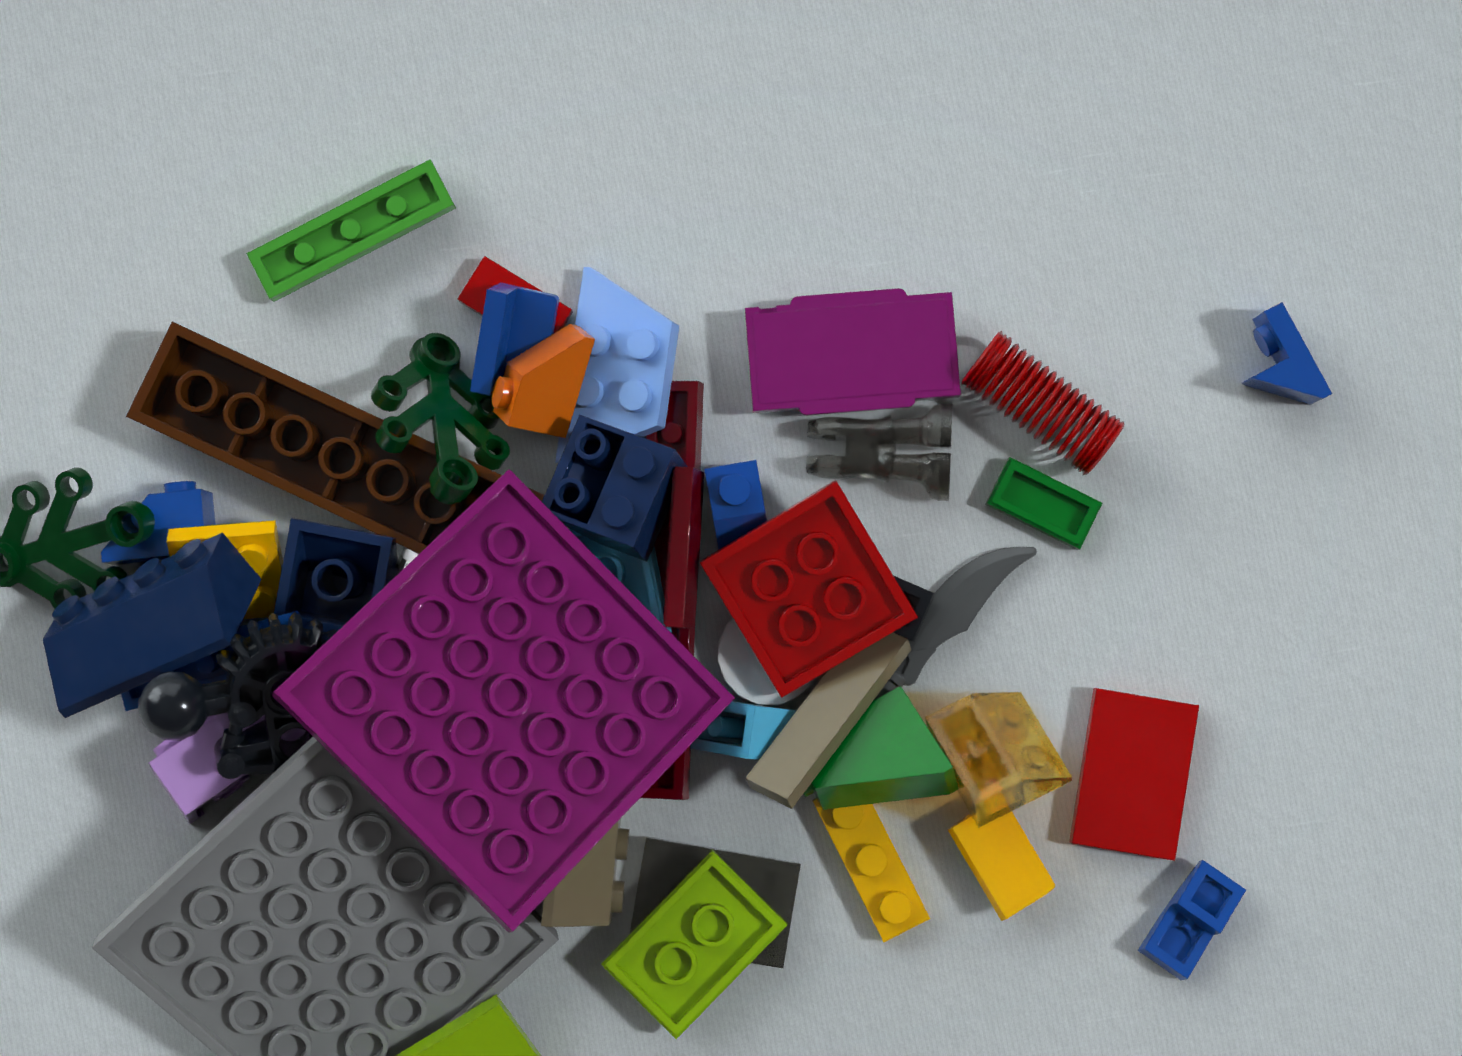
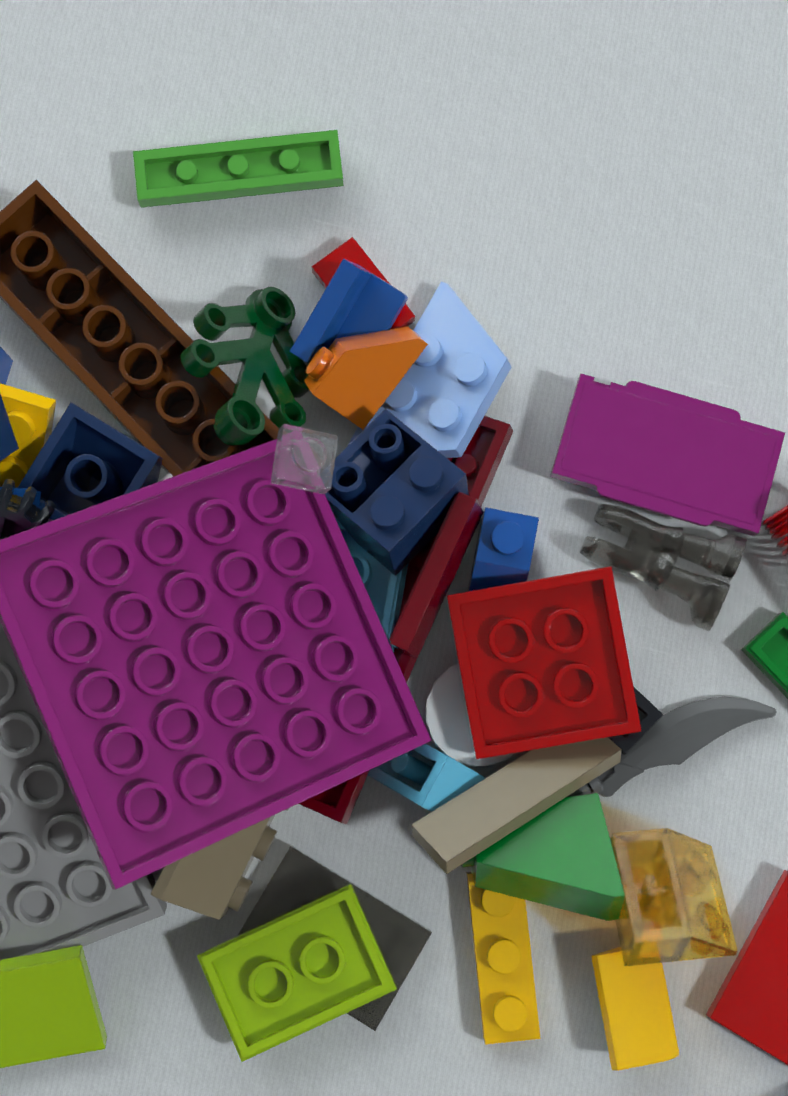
camera: 20 degrees right, 5 degrees down
(525, 492) = (304, 459): none -> clear plate

